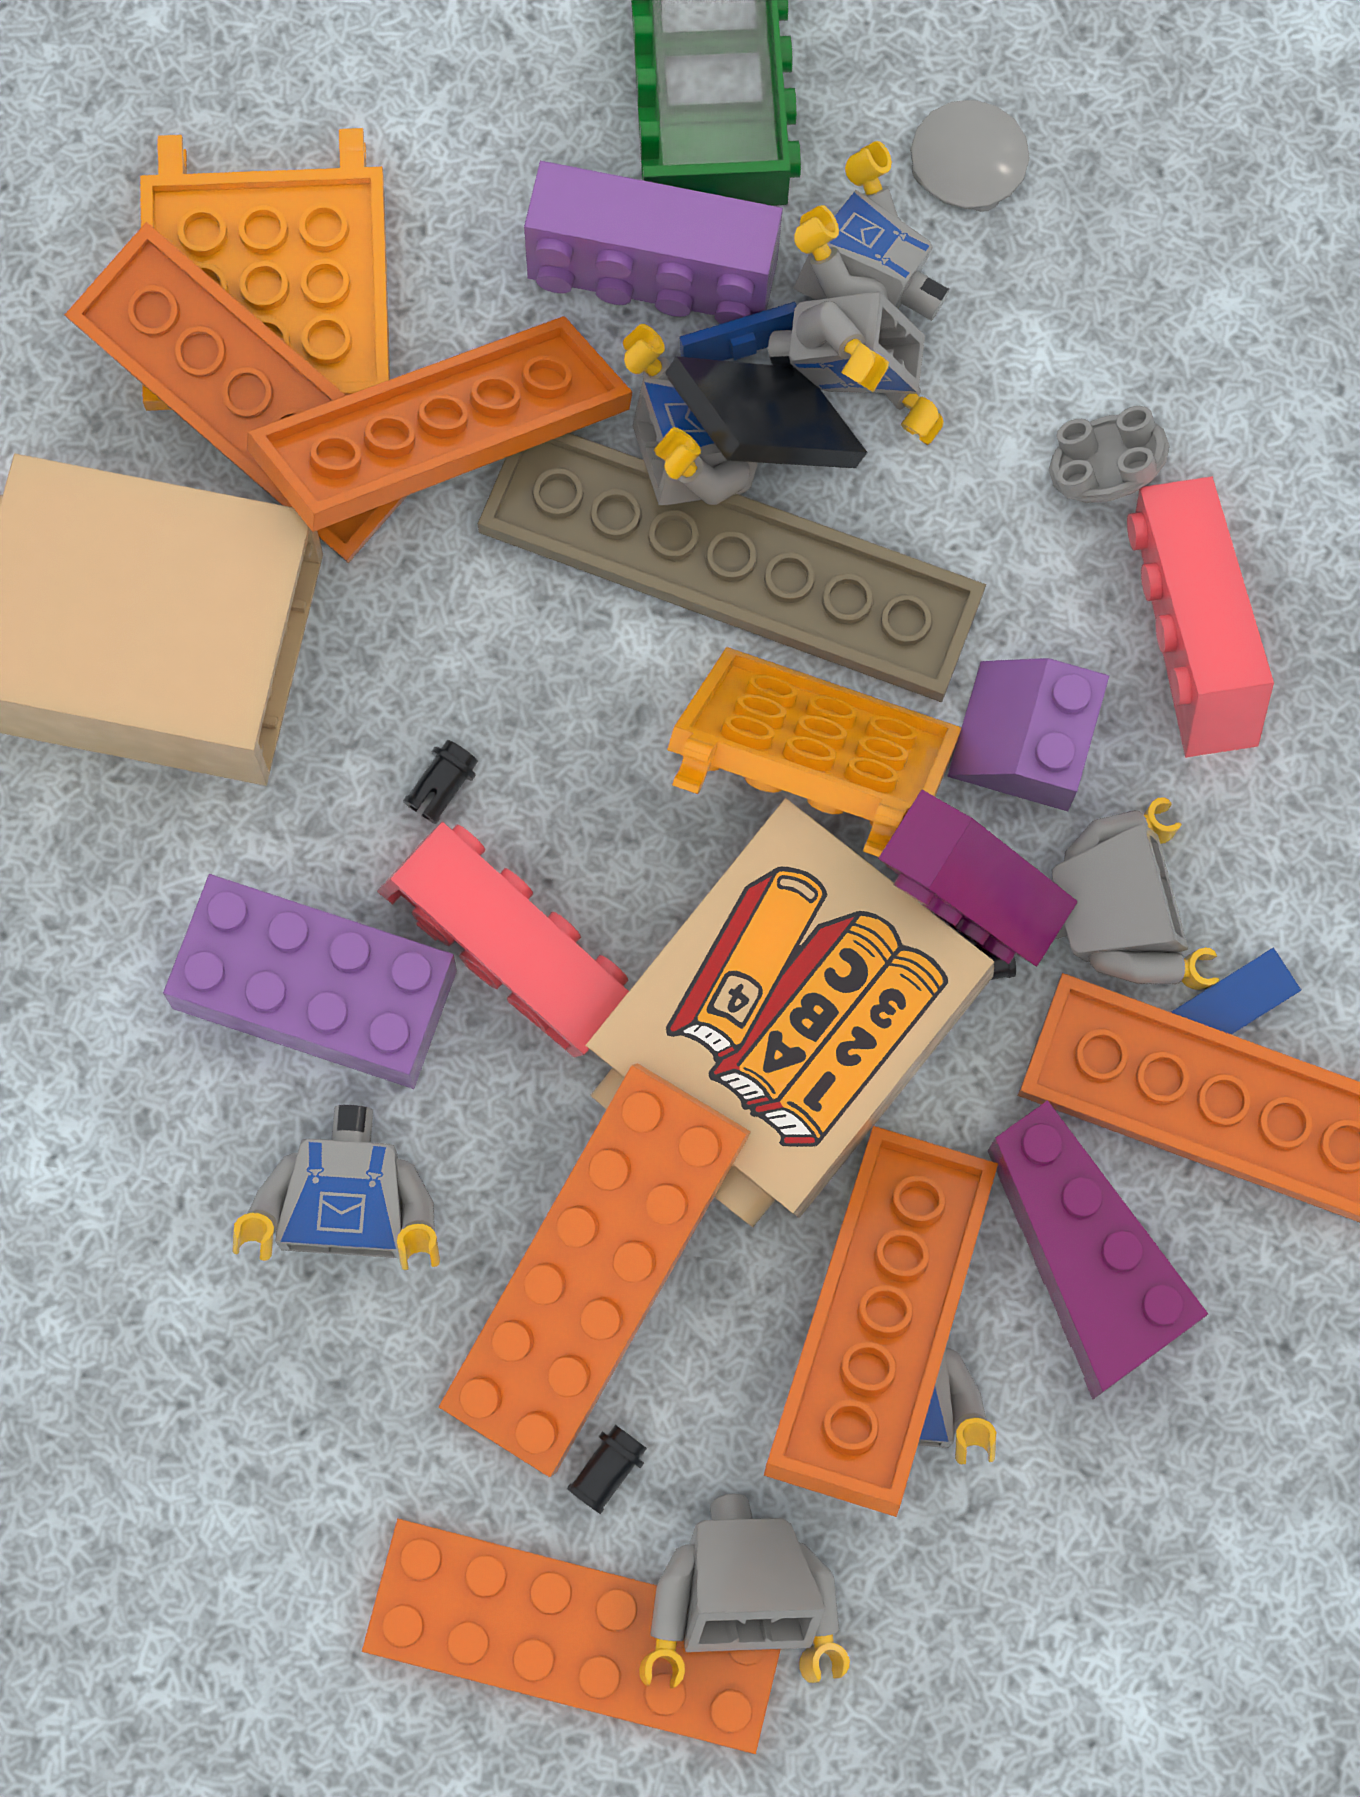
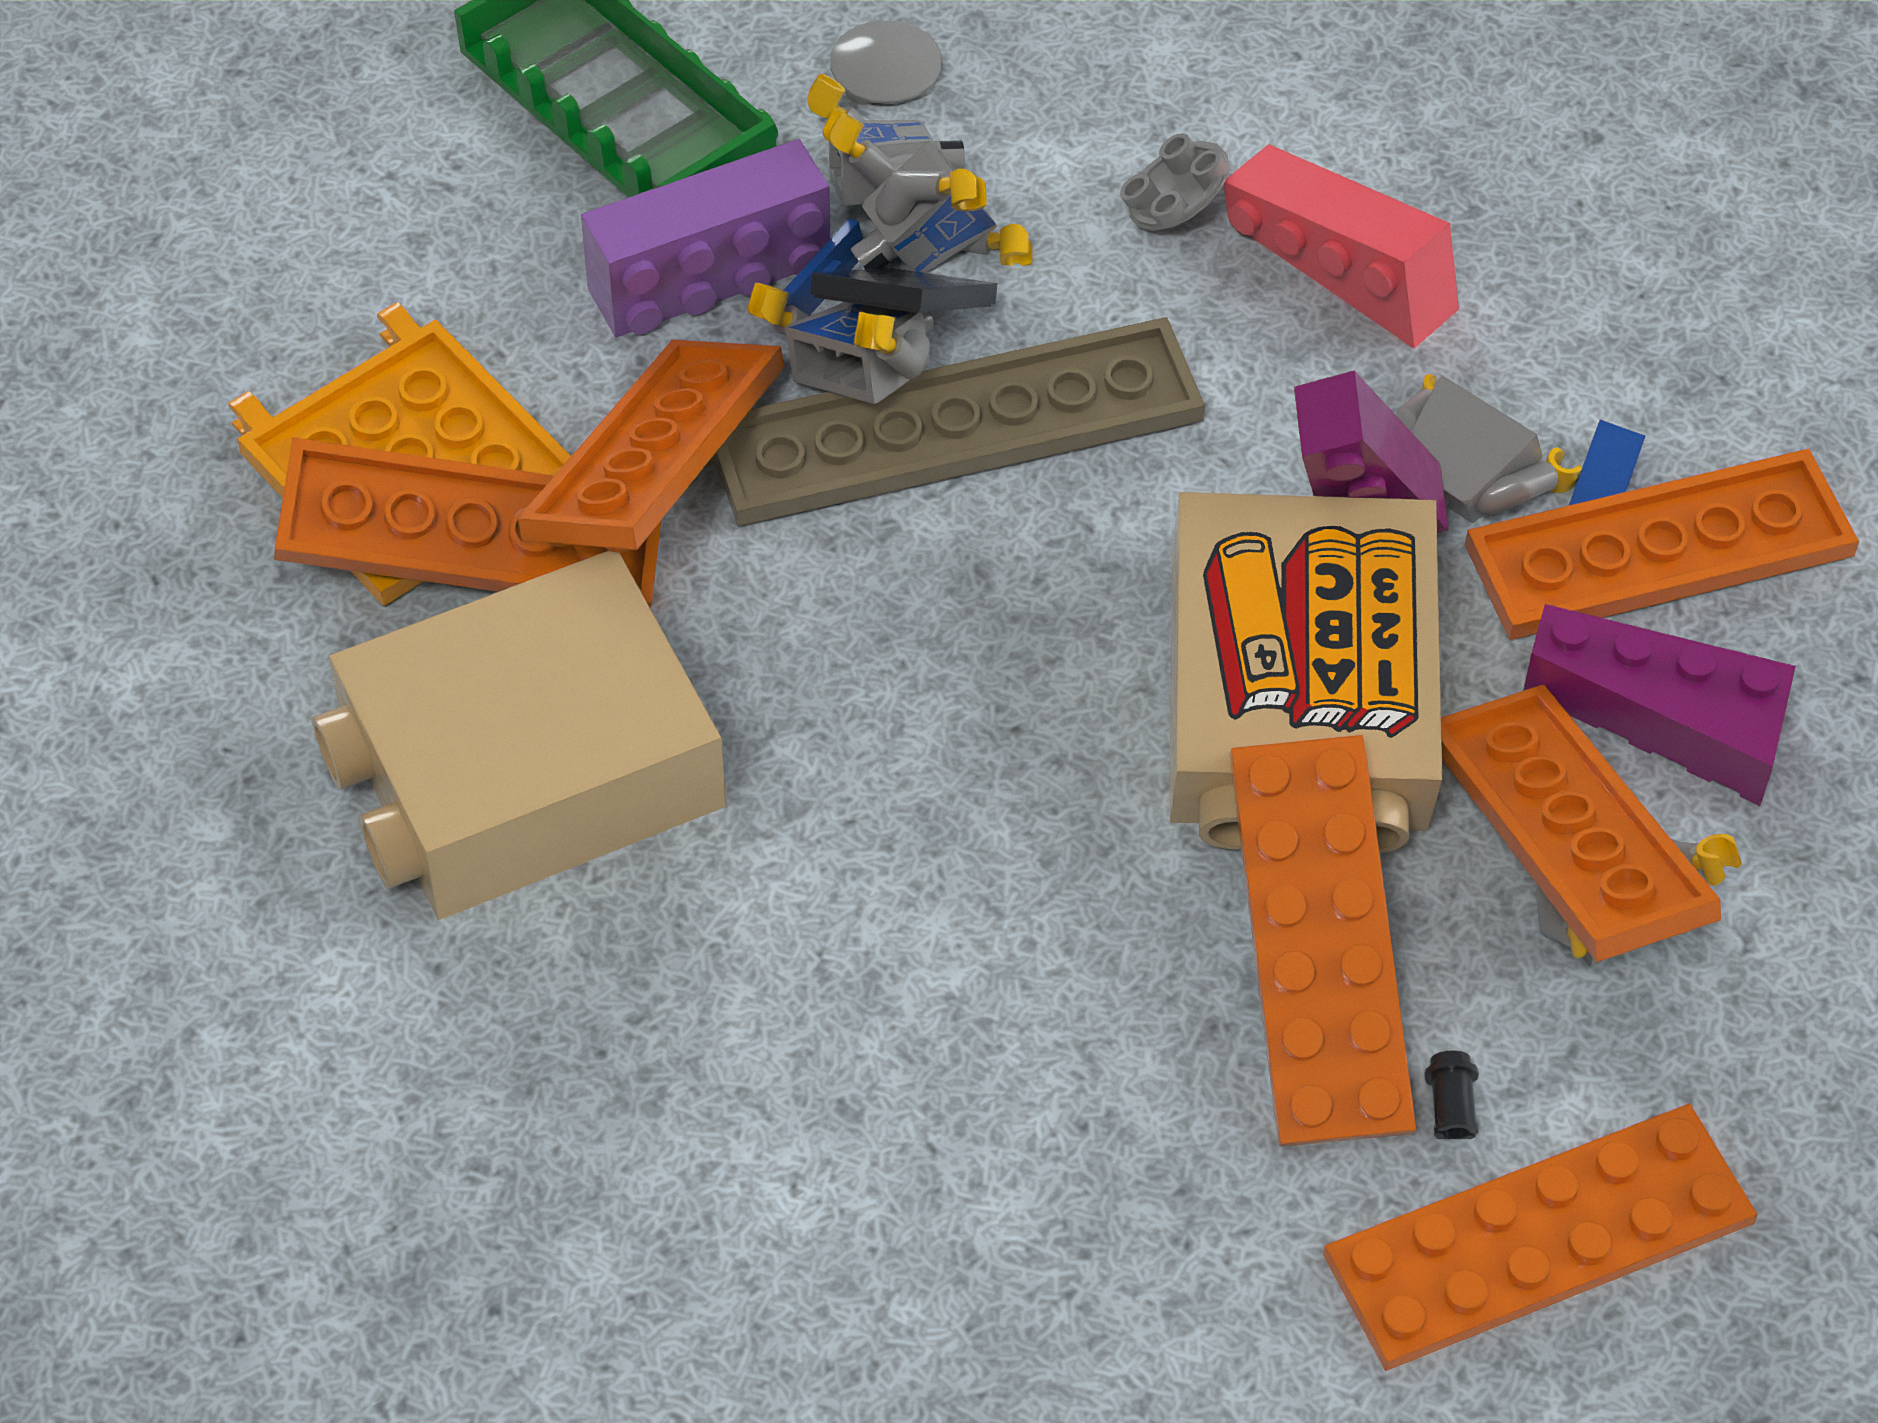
camera: 35 degrees left, 20 degrees down
(311, 981) = (899, 904): medium lavender brick -> none
(343, 1199) = (1075, 1038): torso -> none
(444, 778) = (868, 695): black pin -> none
(507, 936) = (1024, 770): coral wedge -> none
(745, 1589) = (1643, 1091): light grey torso -> none
(811, 742) = (1150, 472): light orange plate -> none
(1029, 729) = (1260, 377): medium lavender slope -> none

